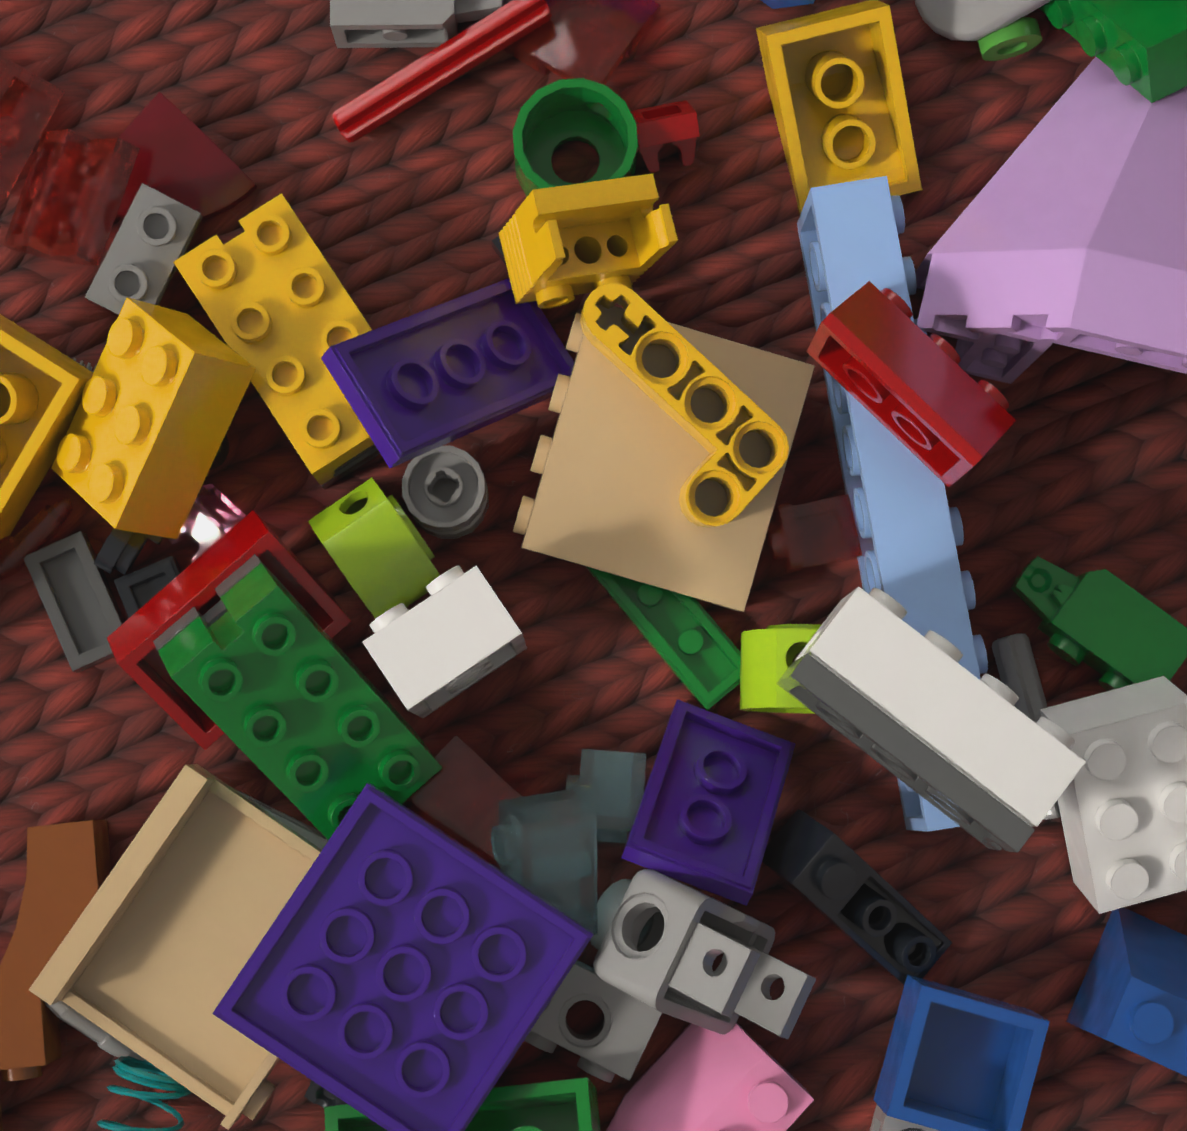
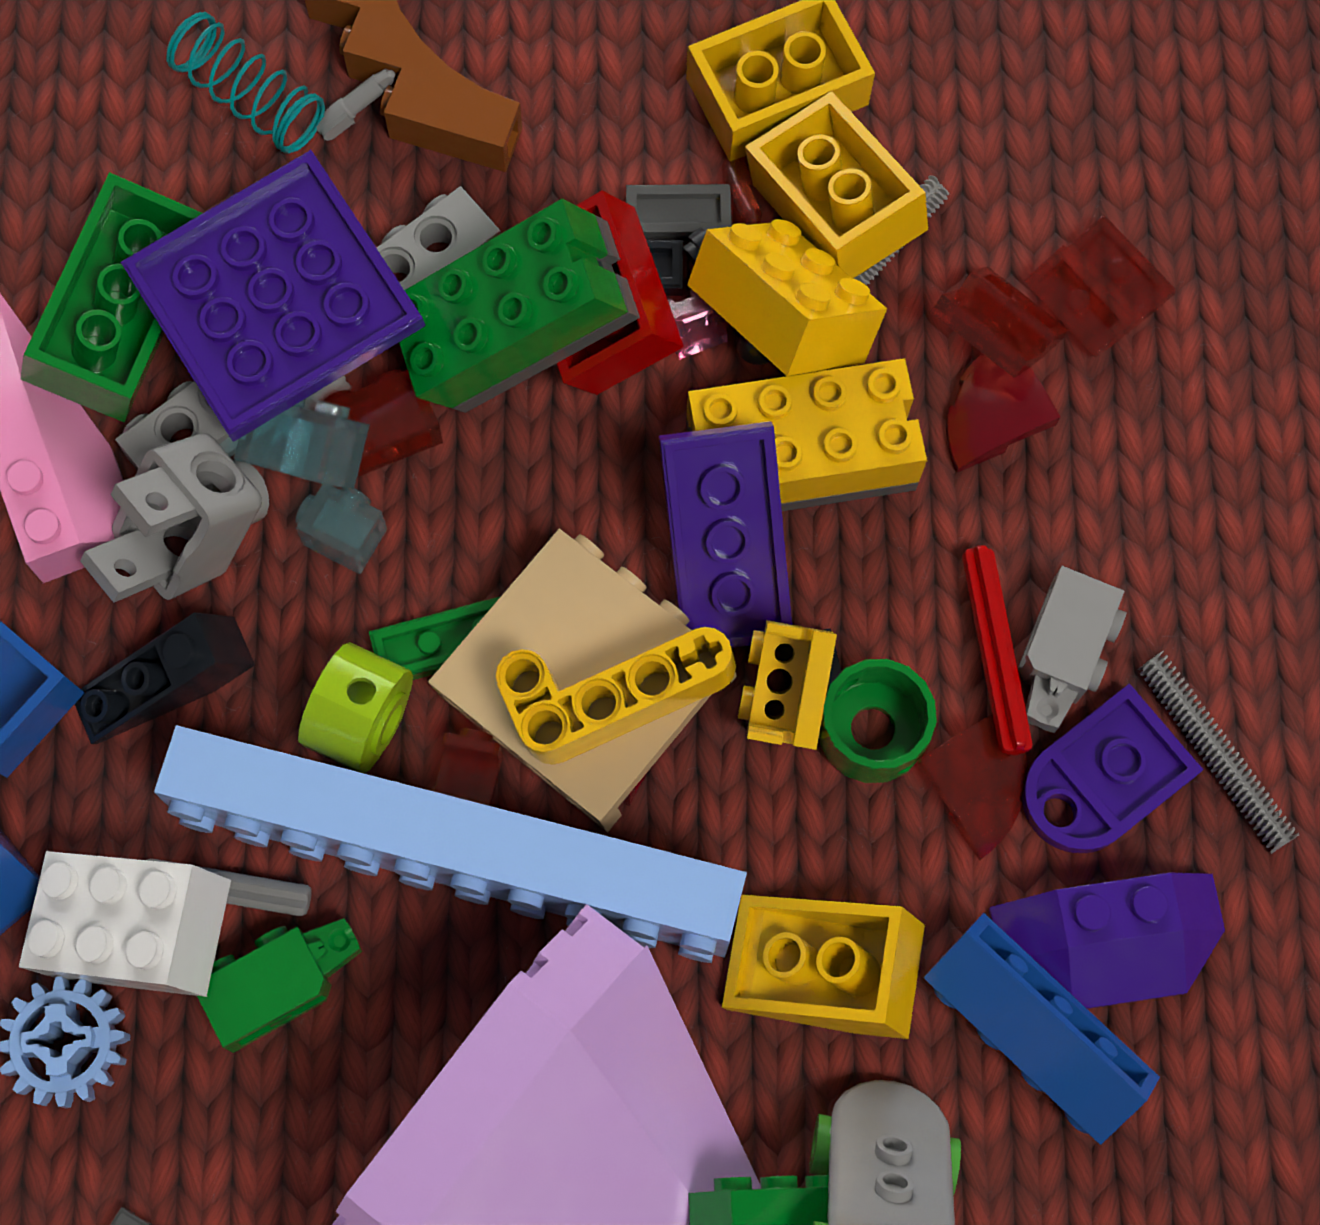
camera: 115 degrees right, 10 degrees down
(144, 251) = (934, 357): light grey brick -> none
(177, 932) = (392, 167): tan panel -> none
(376, 548) = (609, 423): lime piece -> none
(444, 640) = (510, 434): white brick -> none
(445, 492) = (633, 500): light grey wheel -> none
(666, 124) = (868, 806): red tile -> none
(710, 802) = (291, 588): dark purple tile -> none
(911, 382) = (536, 861): red slope -> none
(933, 720) = (252, 742): white piece -> none

